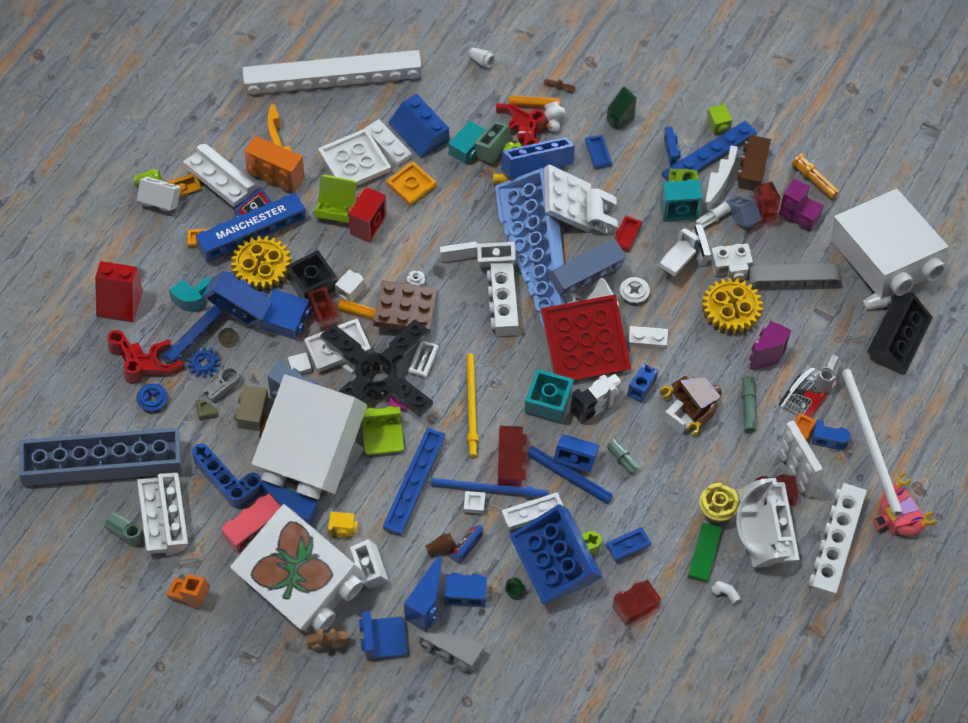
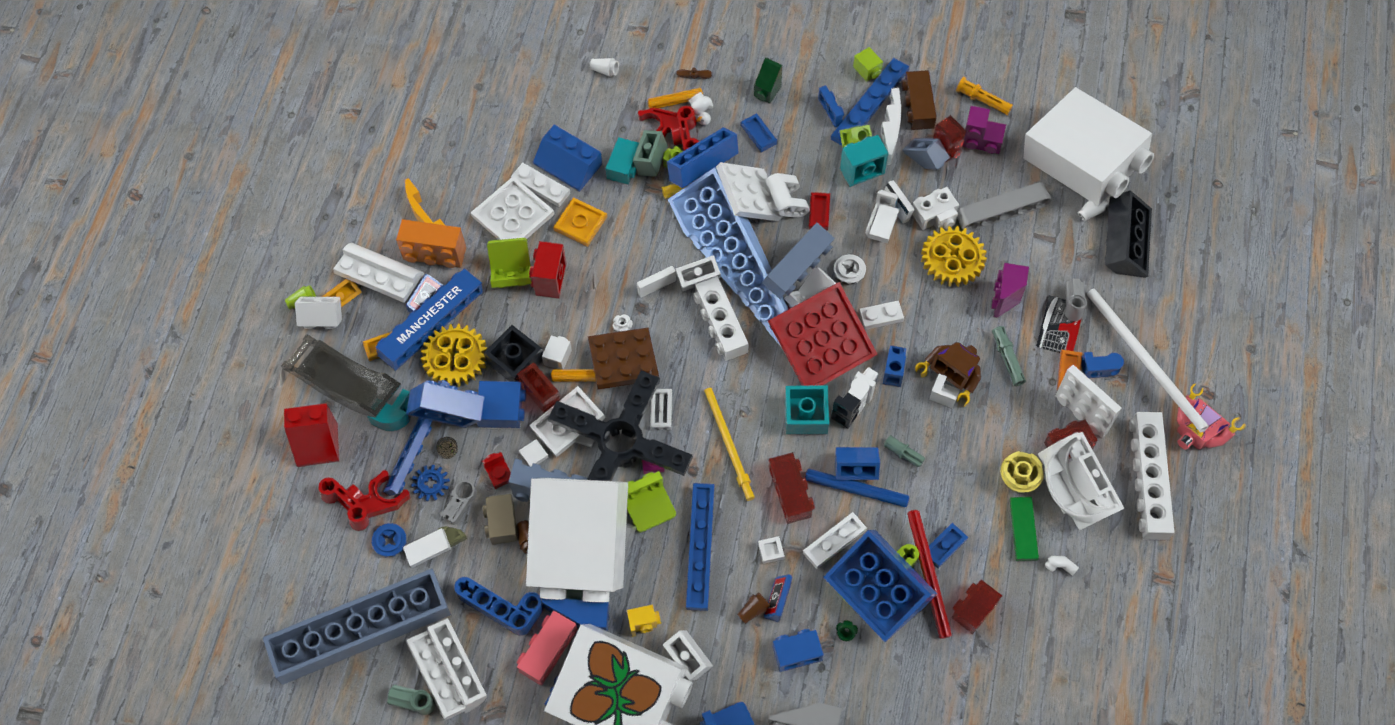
camera: 15 degrees left, 5 degrees up
(158, 253) = (342, 378): none -> clear smoke windscreen
(181, 412) = (427, 548): none -> white tile
(263, 365) = (497, 469): none -> red bracket
(332, 72) = (455, 126): white brick -> none
(422, 603) = (761, 683): blue slope -> none
(529, 491) = (821, 520): blue bar -> none
(604, 562) = (929, 573): none -> red axle
(713, 215) = (899, 166): white axle -> none

